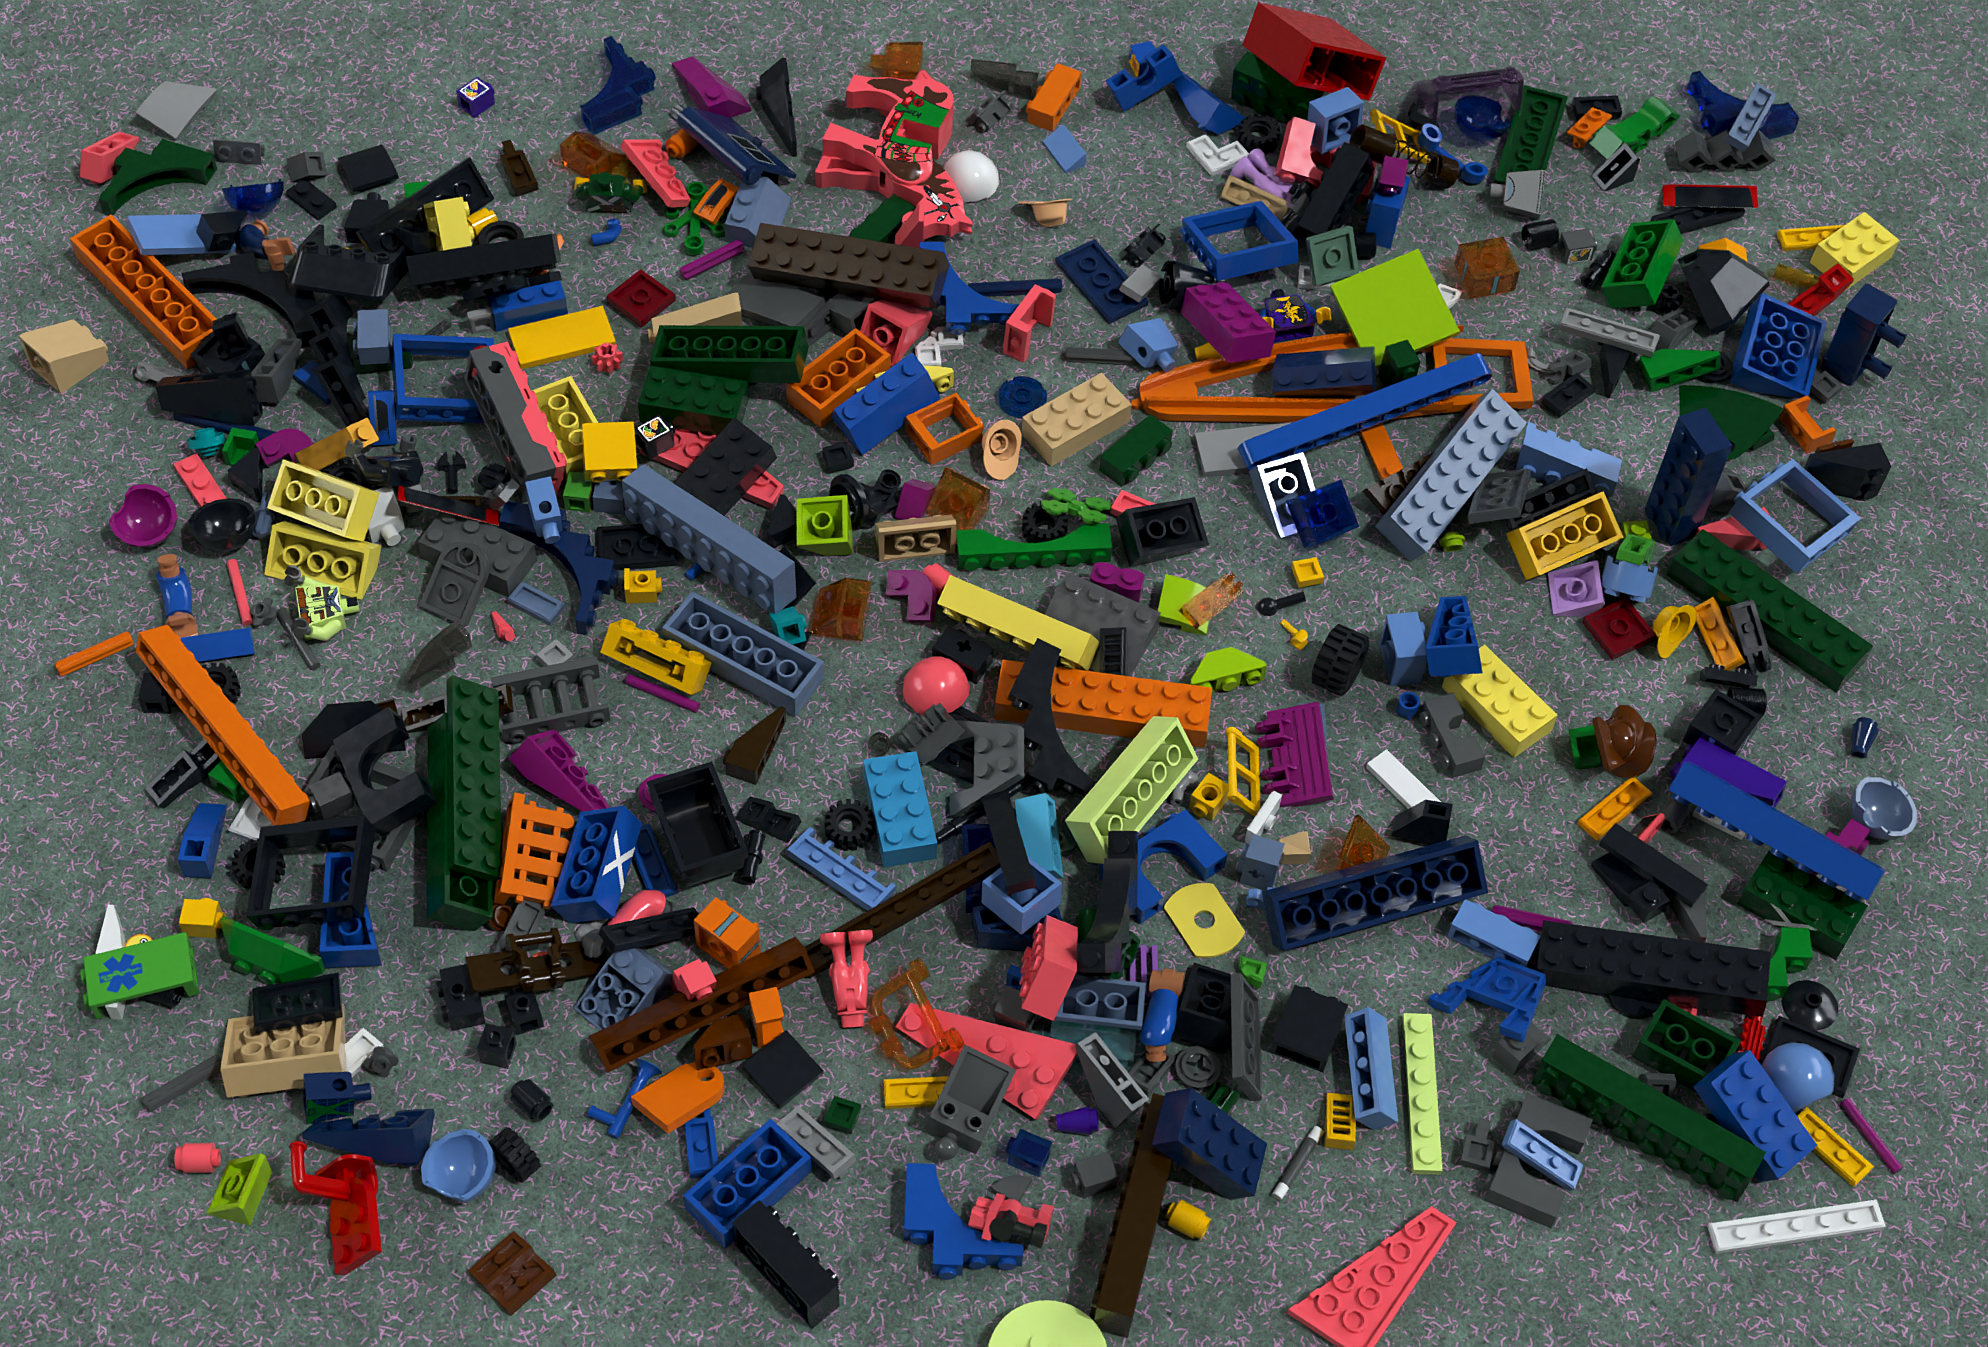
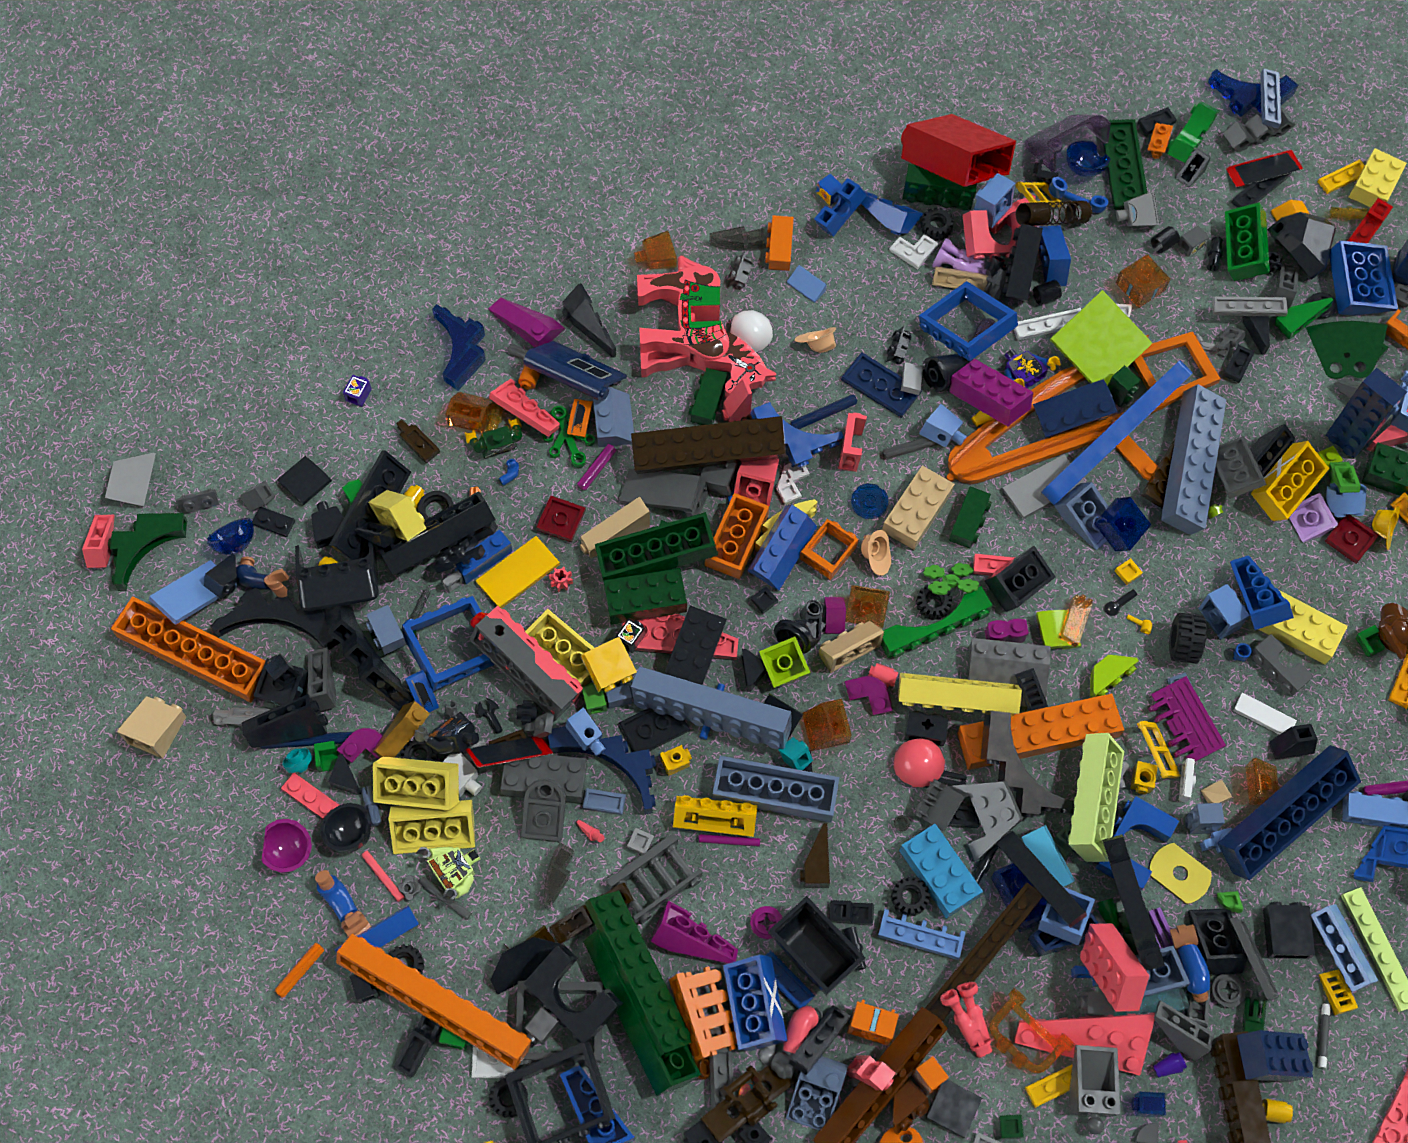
camera: 20 degrees left, 10 degrees up
(202, 840) = (458, 1092): blue slope -> none
(309, 380) = (348, 674): blue tile -> none
(1094, 1175) = (1200, 1103): dark grey brick -> none
(1332, 255) = (1038, 311): sand green plate -> none
(1392, 175) = (1055, 234): magenta slope -> none
(1554, 458) = (1258, 421): medium blue wedge -> none

